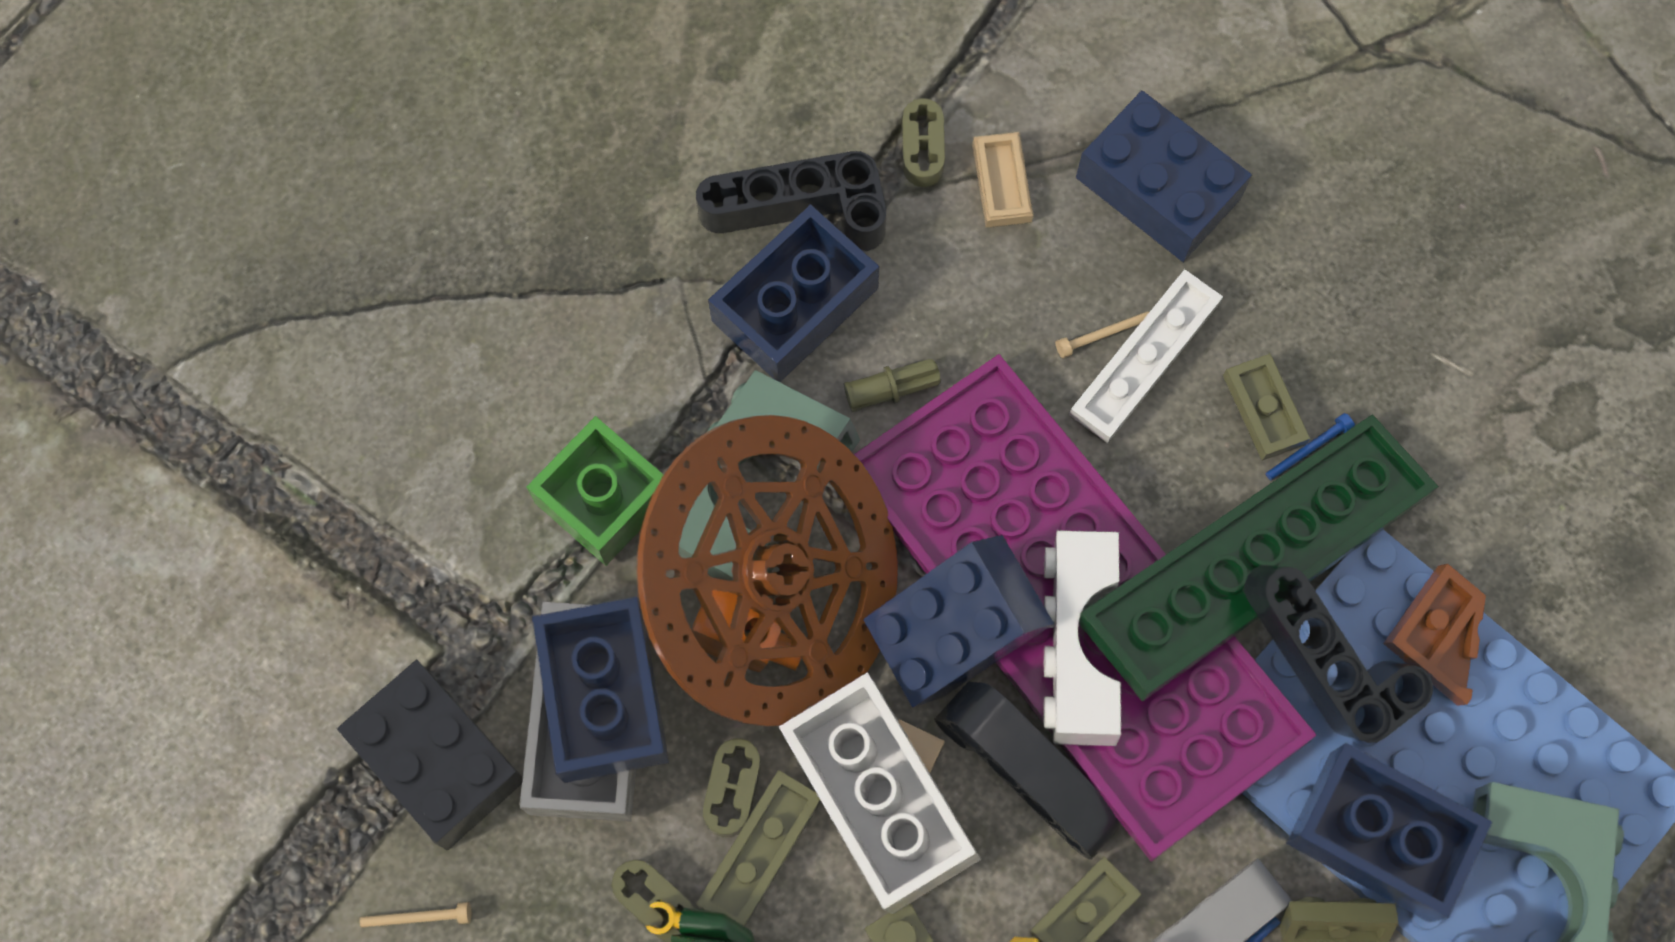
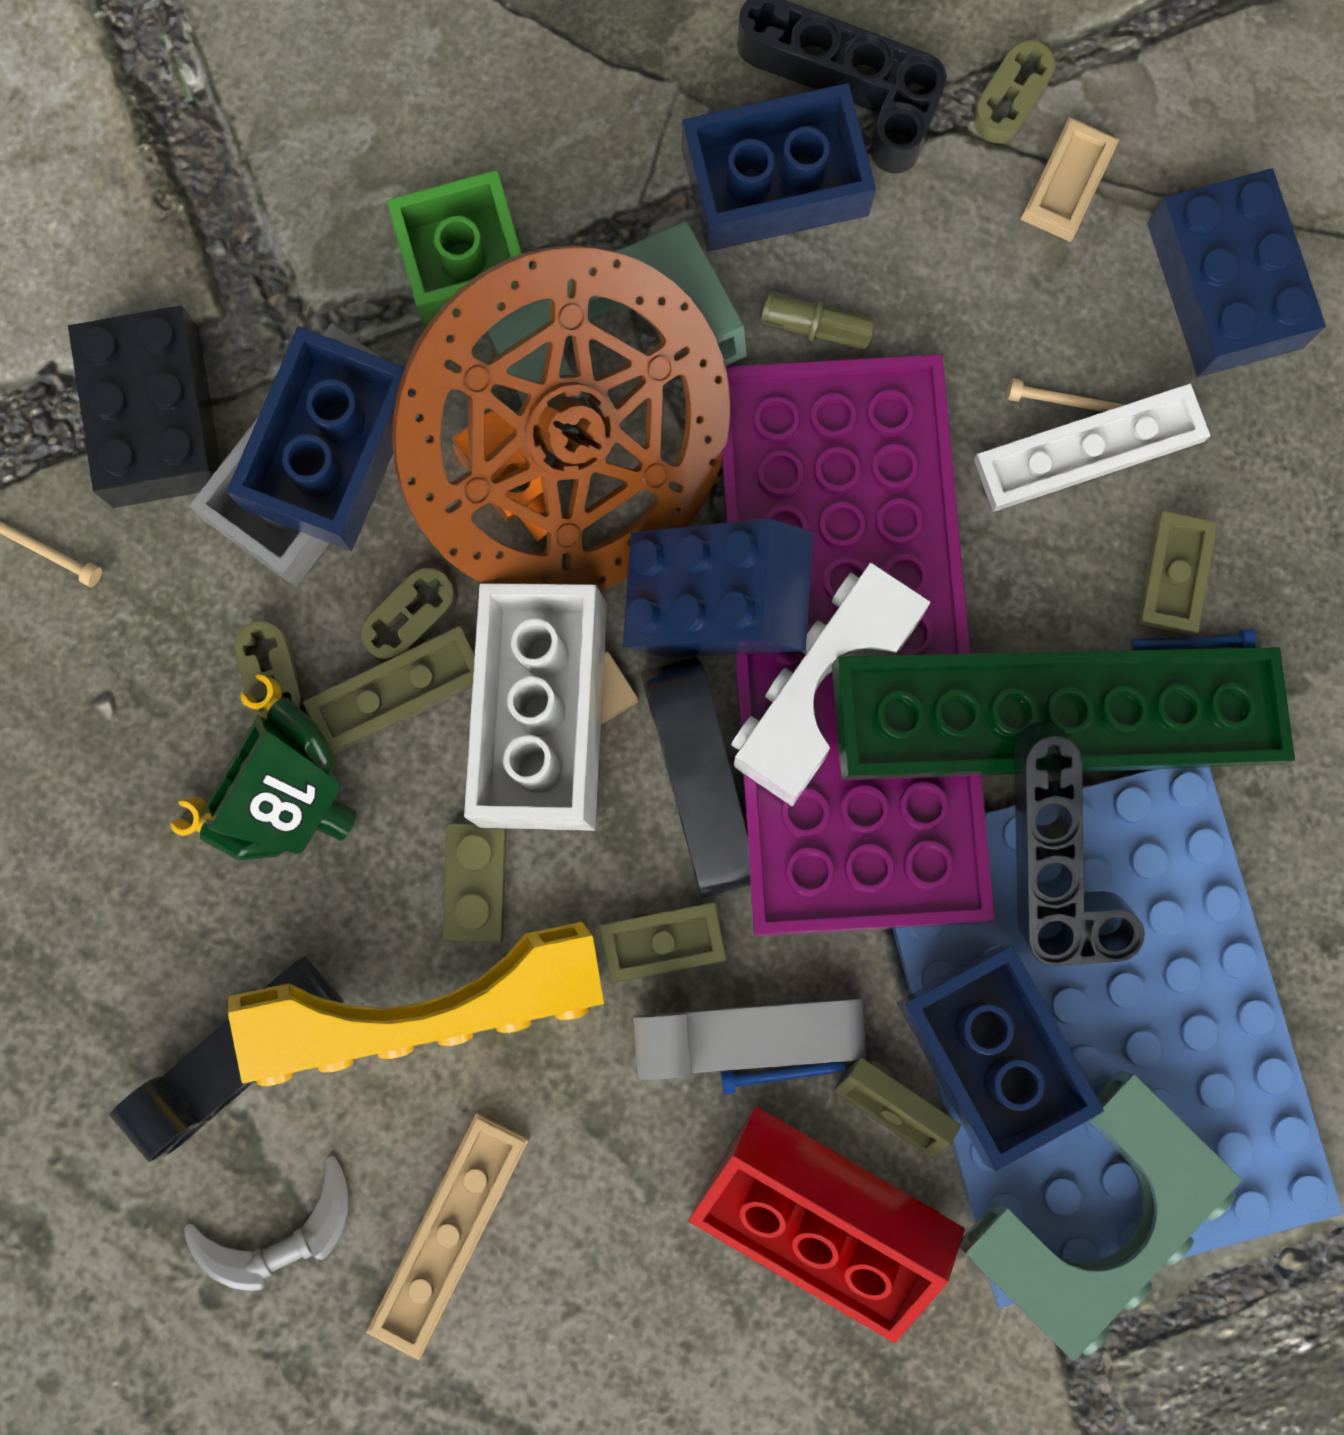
camera: 30 degrees right, 10 degrees up
(1442, 632) = (1192, 902): dark orange wing -> none

